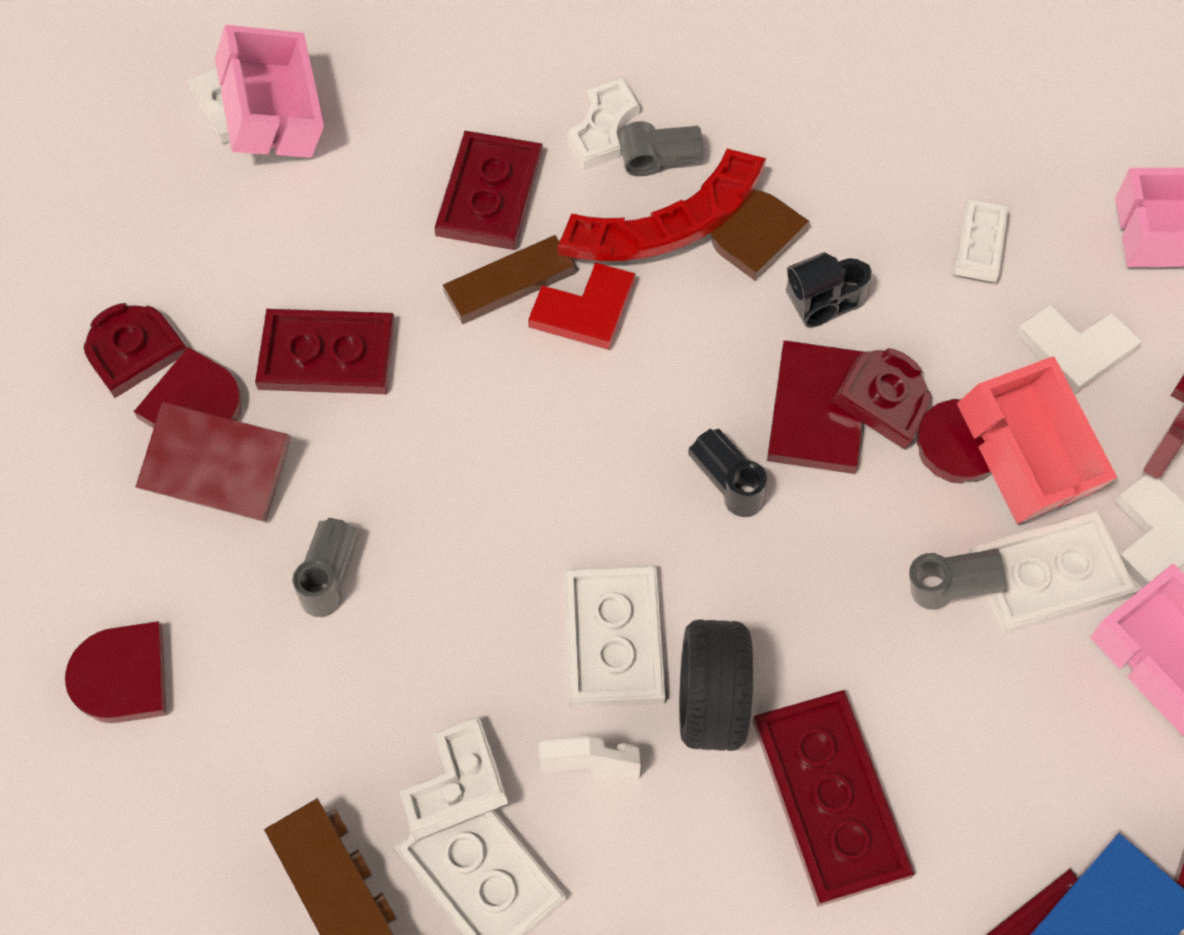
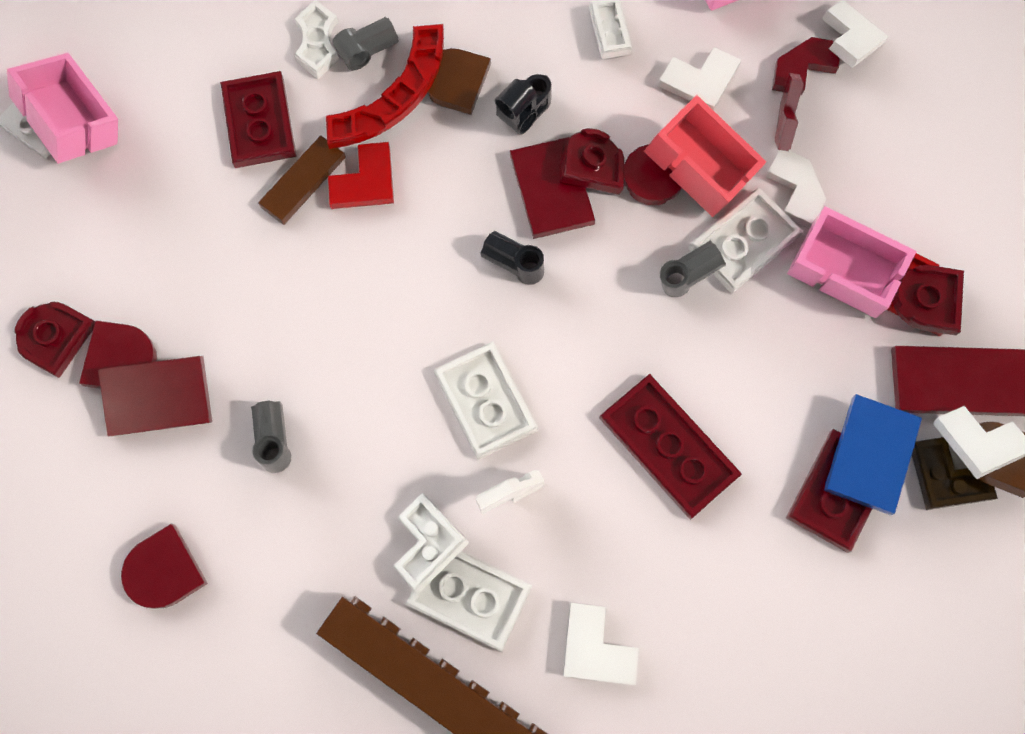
camera: 25 degrees left, 10 degrees up
(325, 351) = (196, 283): dark red tile -> none
(716, 685) = (571, 408): black tyre -> none

